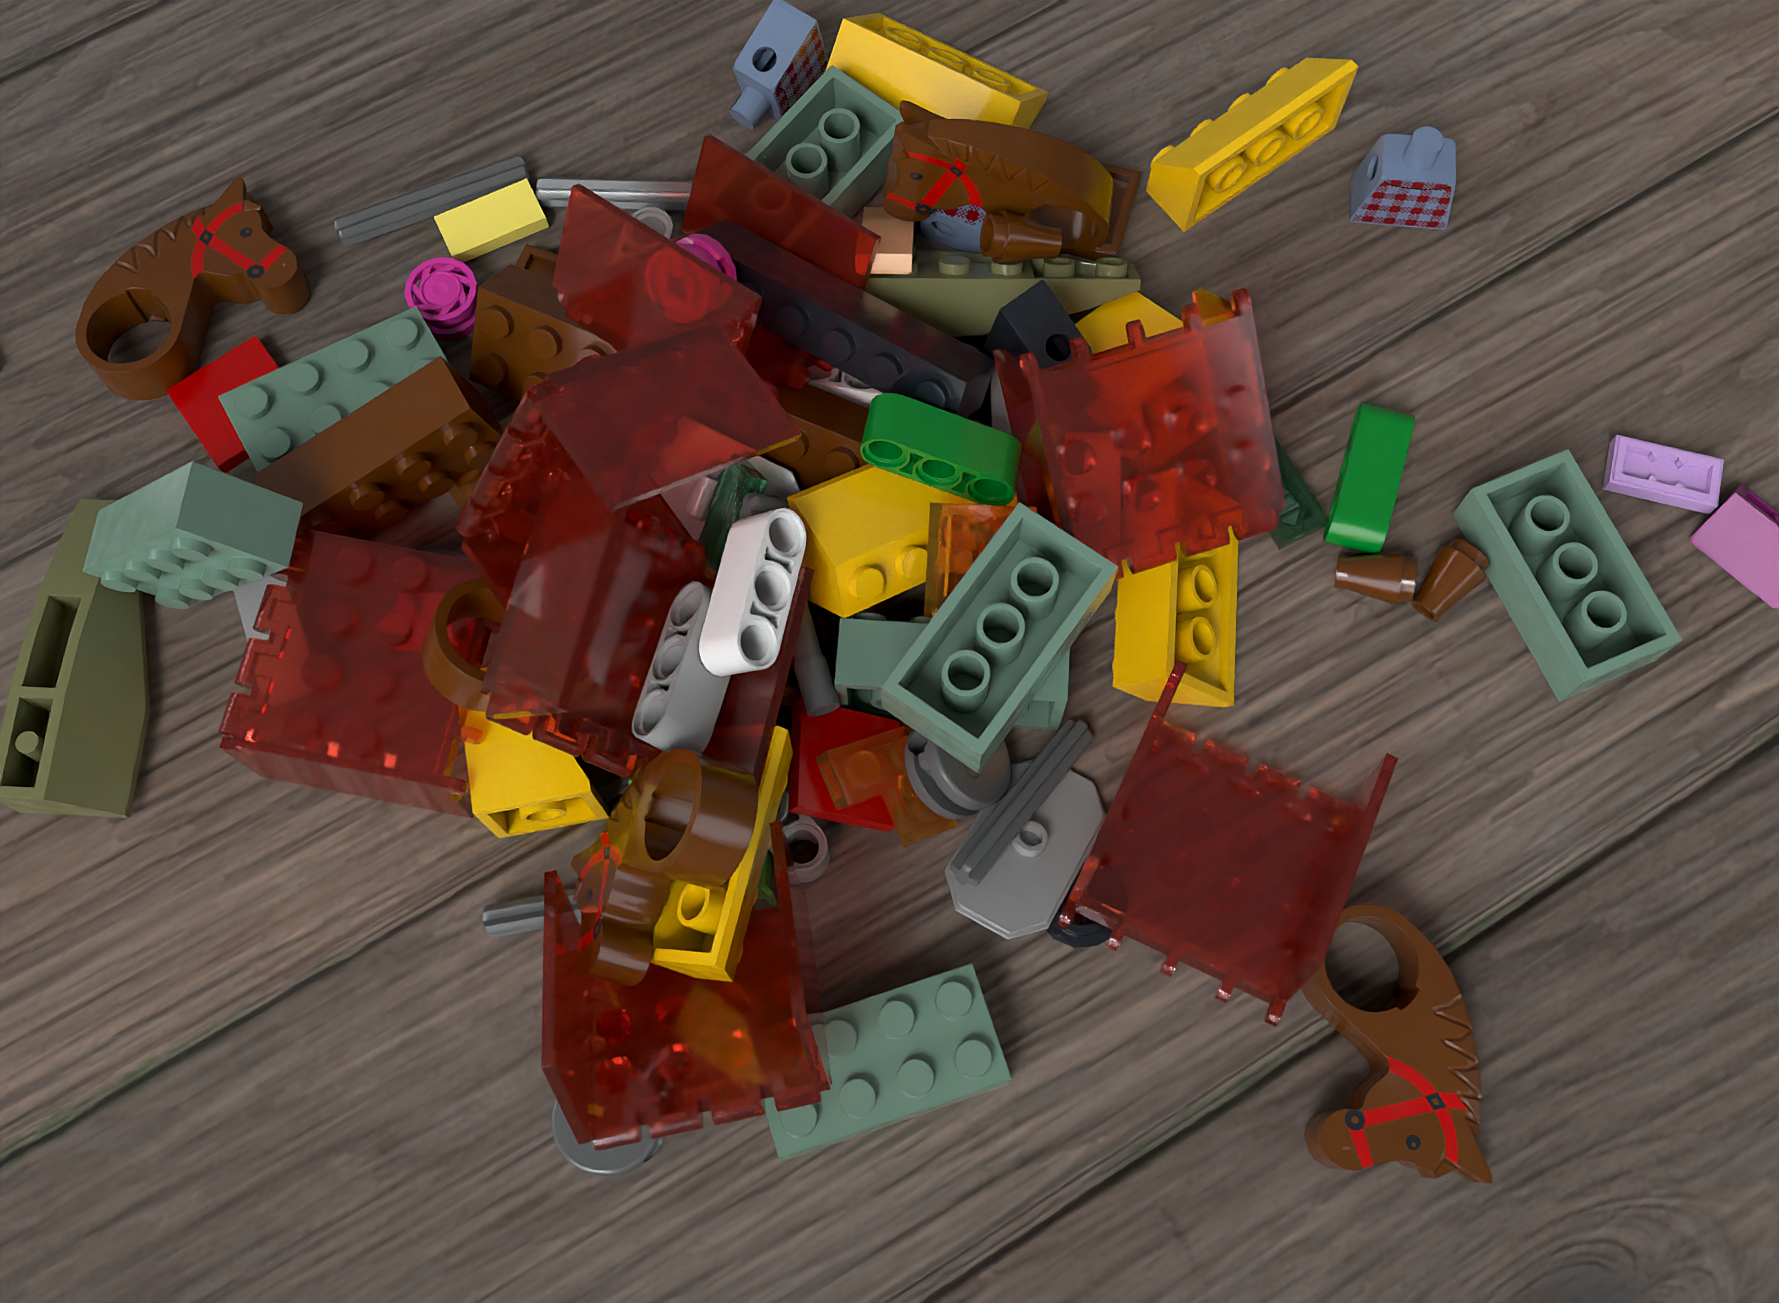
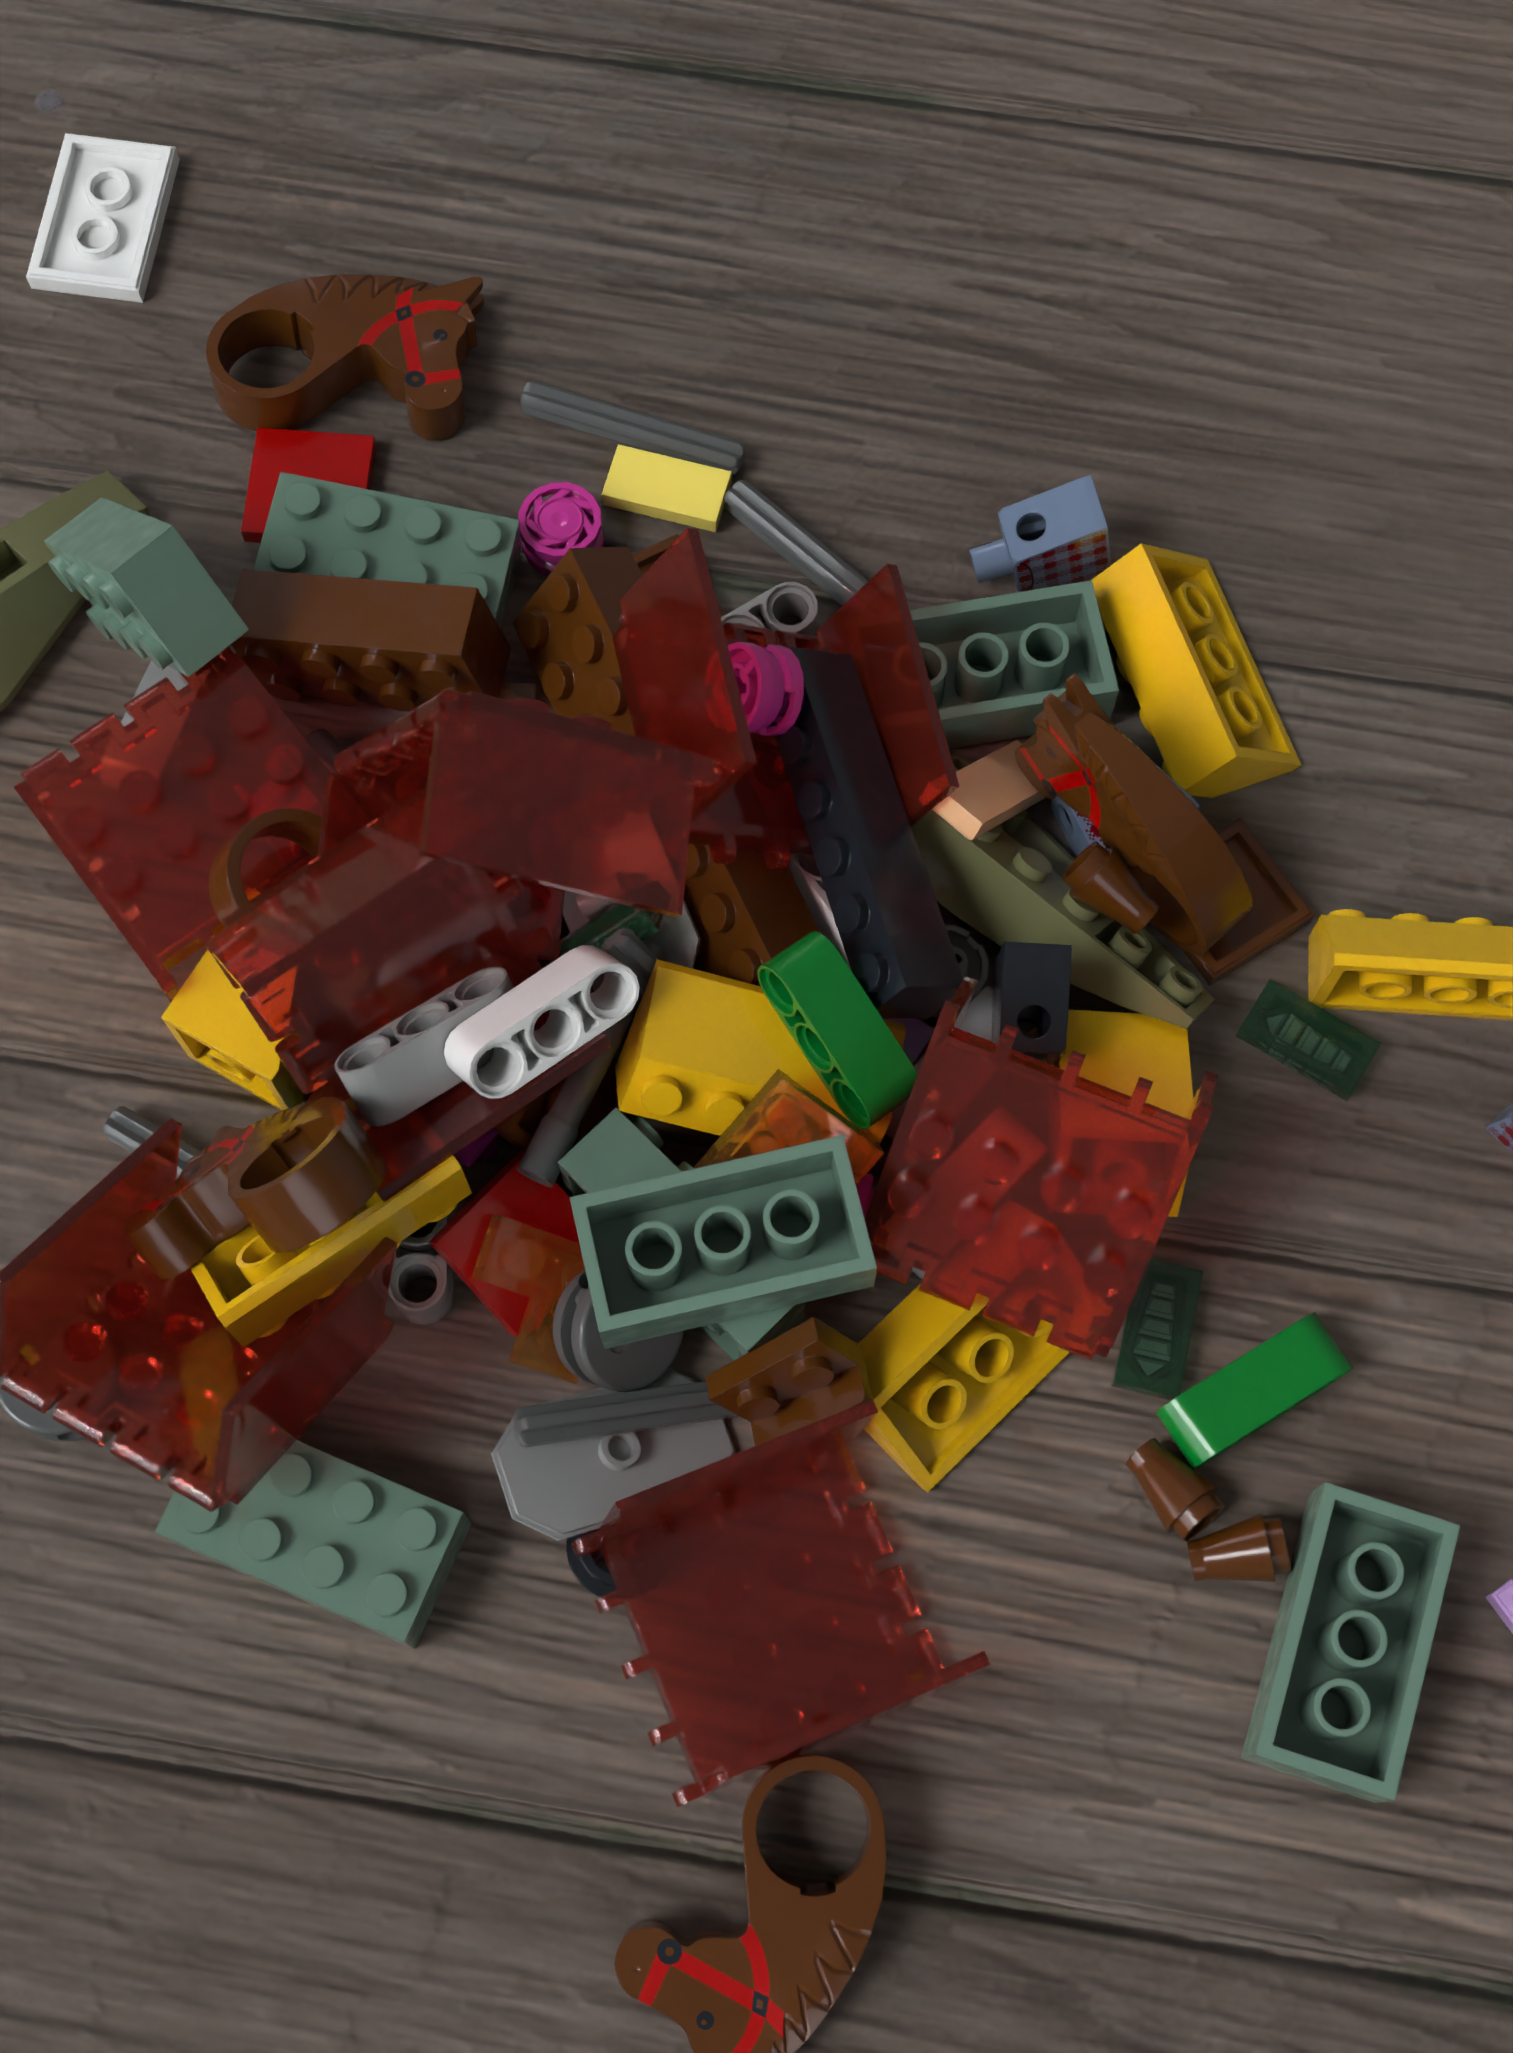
camera: 40 degrees right, 0 degrees up
(1111, 700) = (793, 1380): none -> reddish brown bracket
(1203, 250) = (1308, 1039): none -> clear green tile

